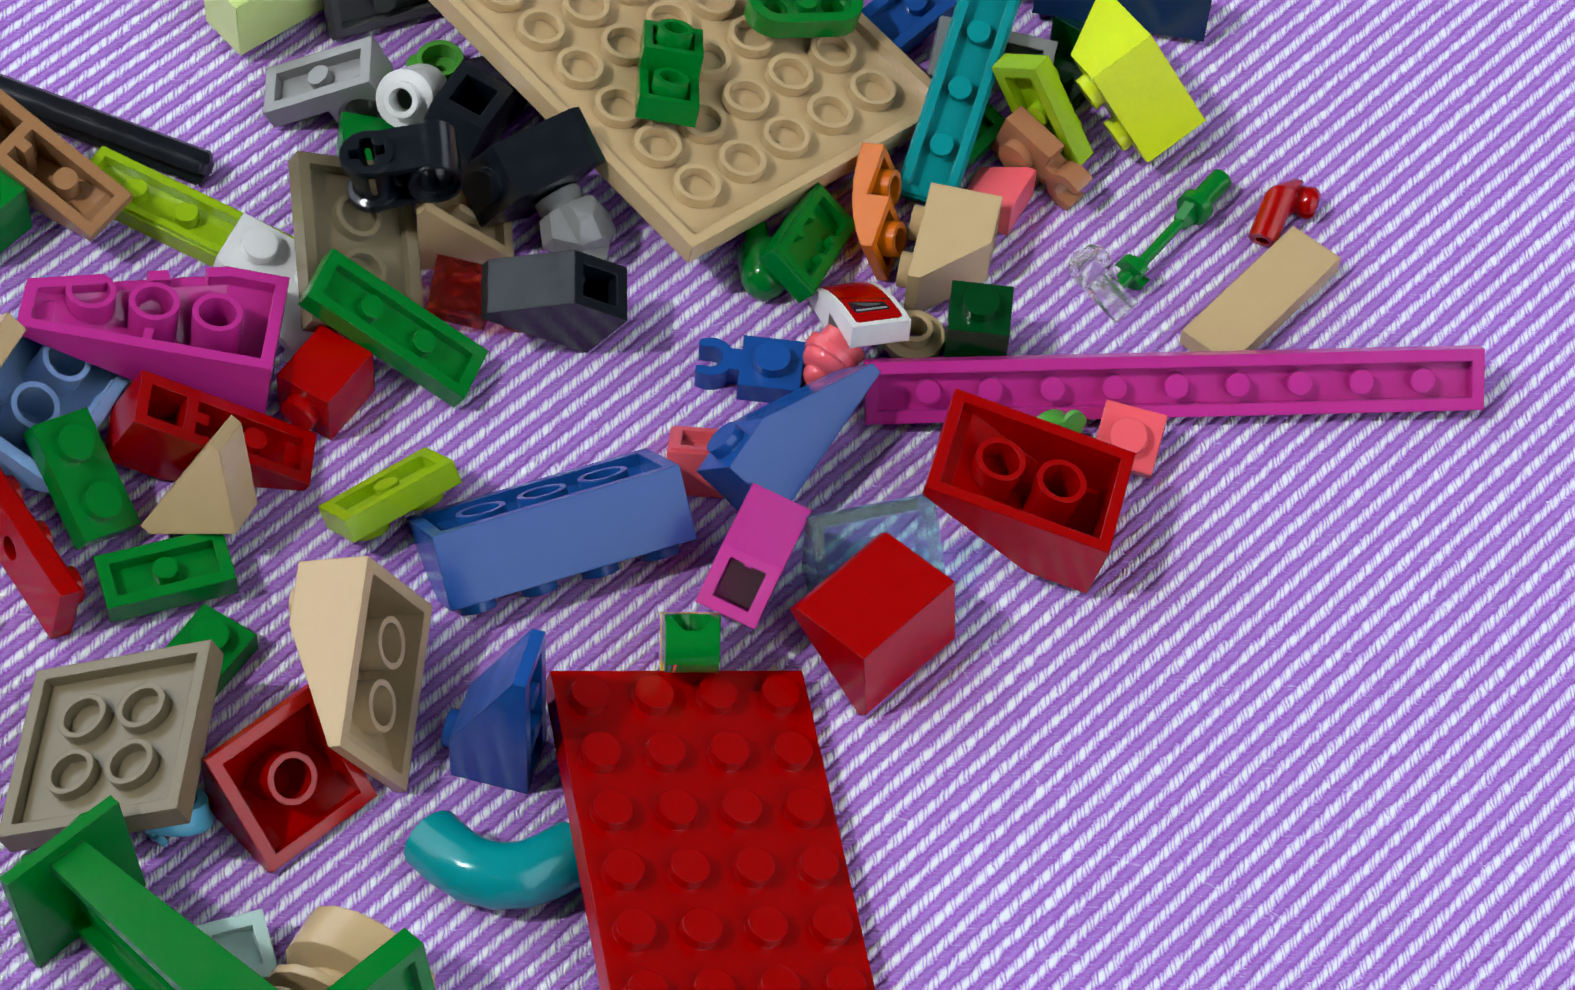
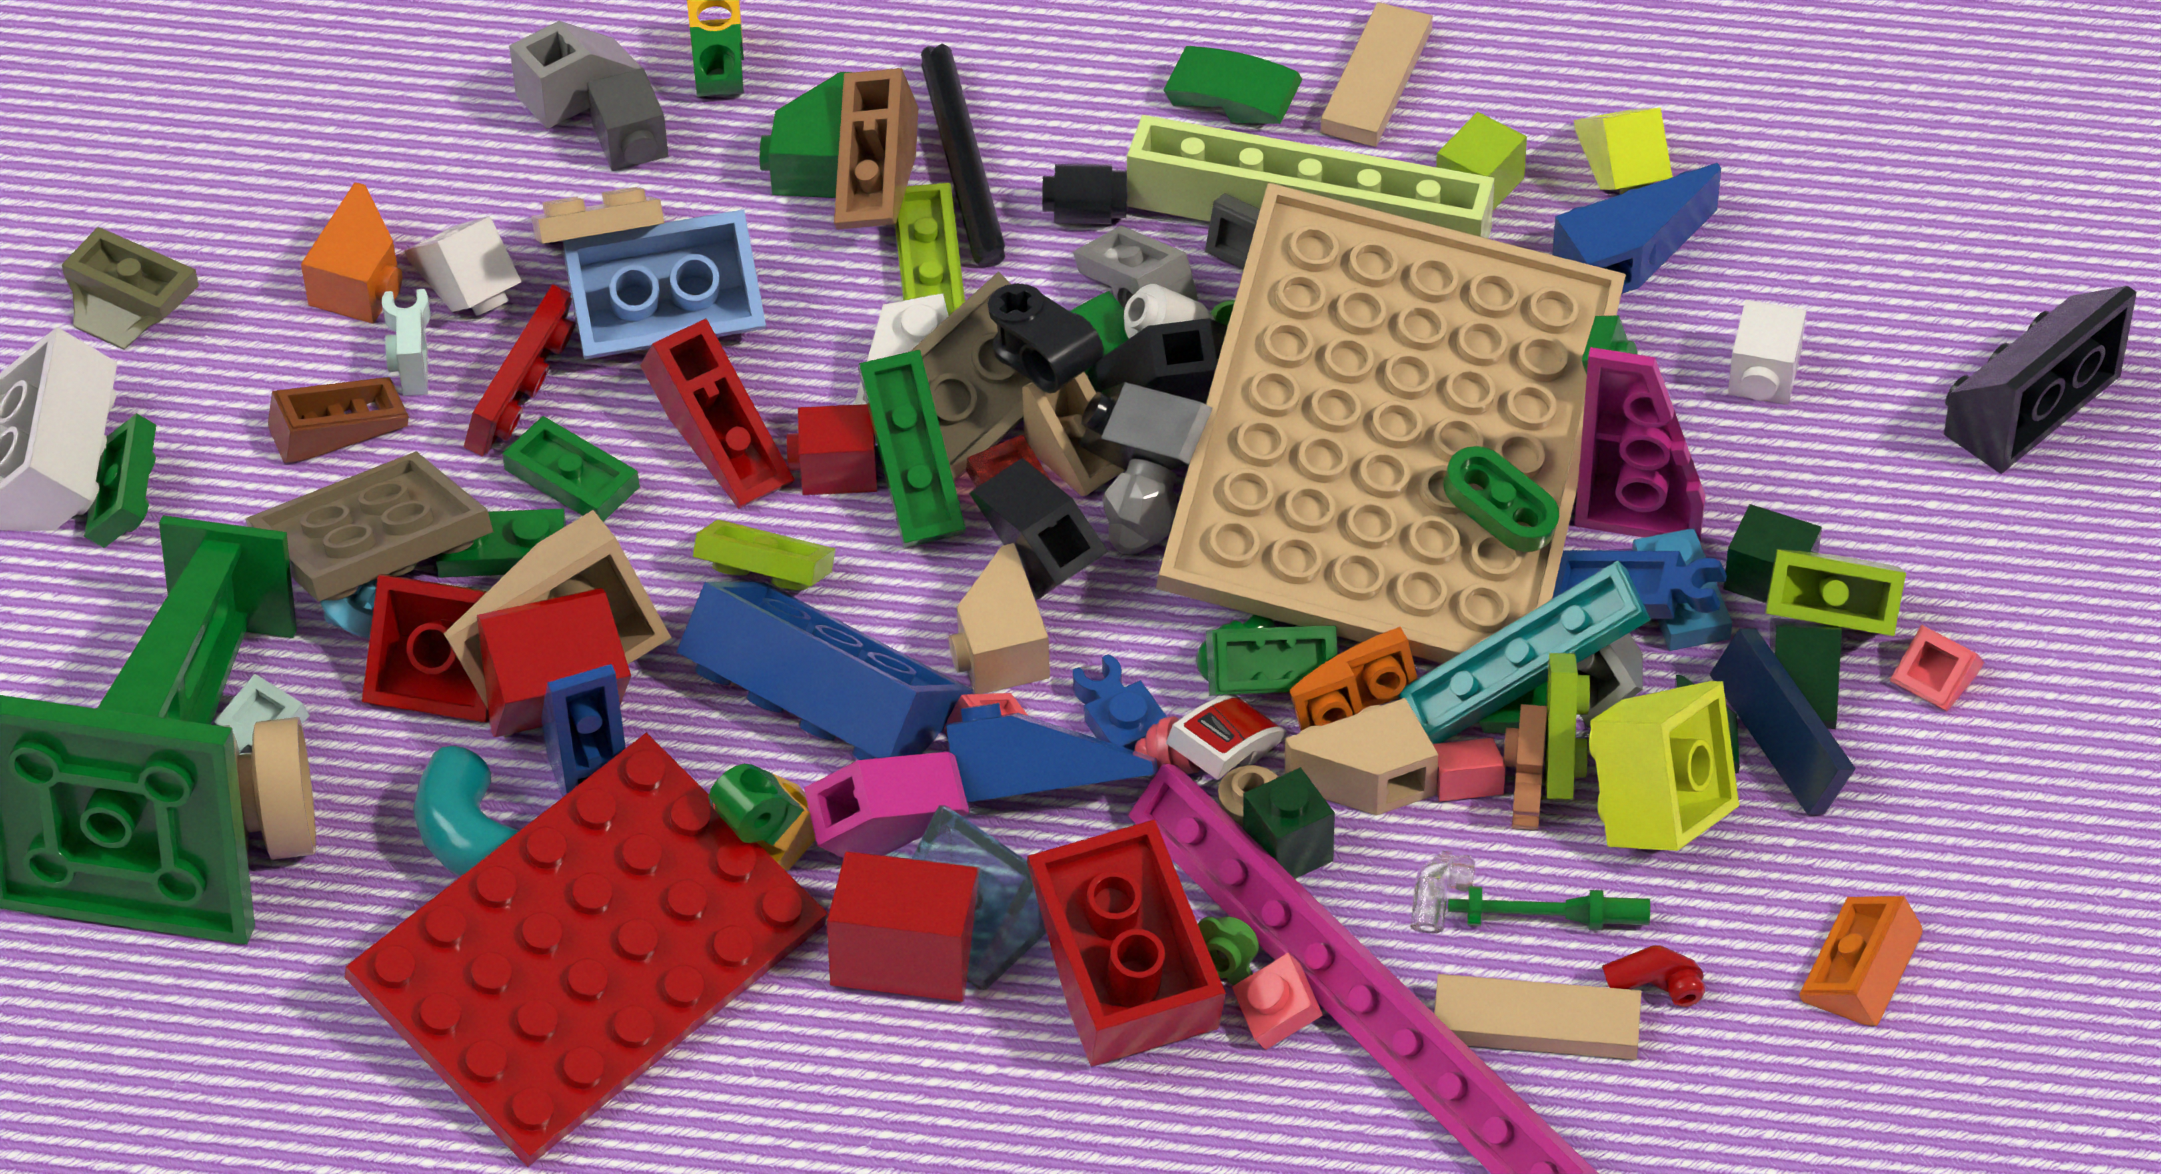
camera: 60 degrees right, 5 degrees down
(81, 478) = (603, 362): green plate -> none
(197, 330) = (775, 319): dark pink wedge -> none
(211, 68) = (1085, 194): none -> black brick
(212, 492) = (657, 435): tan slope -> none
(408, 693) = (541, 644): none -> red slope
(613, 385) = (1000, 628): none -> tan slope
(669, 72) = (1325, 451): green slope -> none
(1352, 93) = (1863, 958): none -> orange slope

